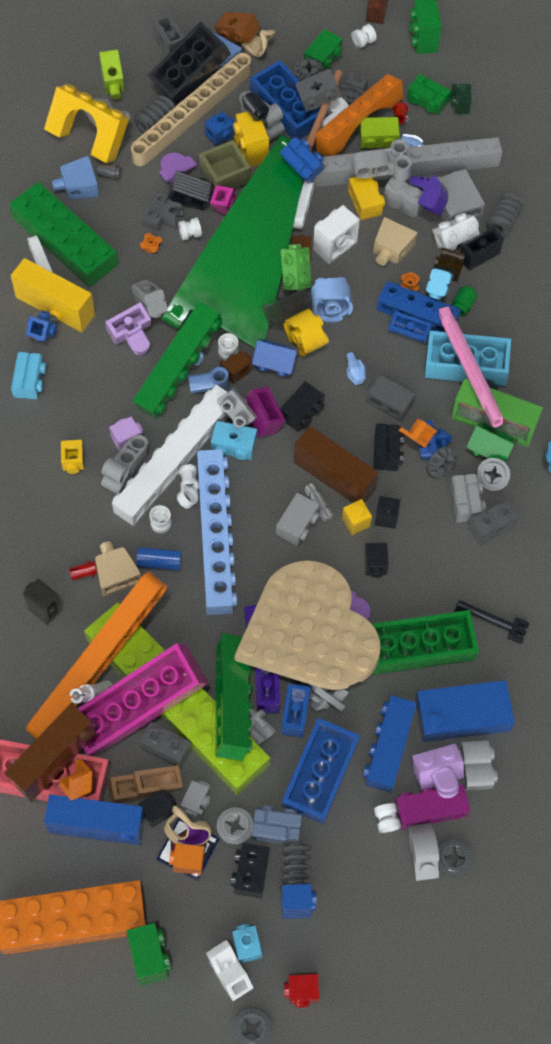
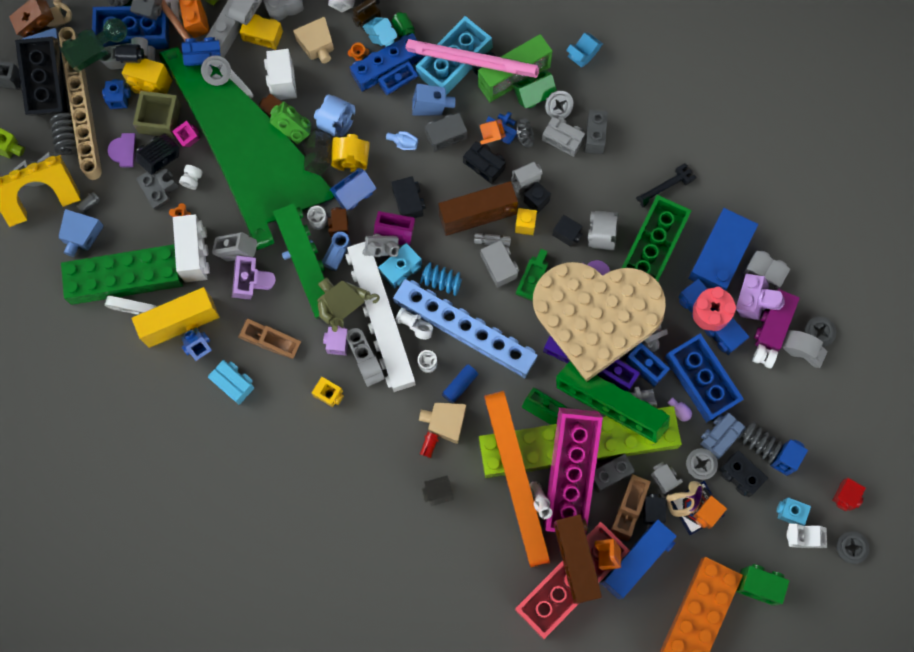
camera: 50 degrees left, 10 degrees up
(88, 379) = (269, 339): none -> medium nougat slope
(122, 266) = (190, 248): none -> white brick
(159, 408) = (340, 301): none -> olive torso
(194, 638) = (542, 406): none -> green slope
(240, 78) = (89, 45): none -> clear green brick
(247, 482) = (441, 278): none -> dark azure piece
(275, 772) = (682, 411): none -> lavender cylinder
(290, 172) = (216, 79): none -> light grey gear
(317, 553) = (534, 271): none -> green hinge
(394, 719) = (717, 299): none -> coral brick
(399, 487) = (526, 177): none -> light grey brick
(399, 587) = (603, 230): none -> light grey brick
(409, 364) = (430, 100): none -> medium blue torso

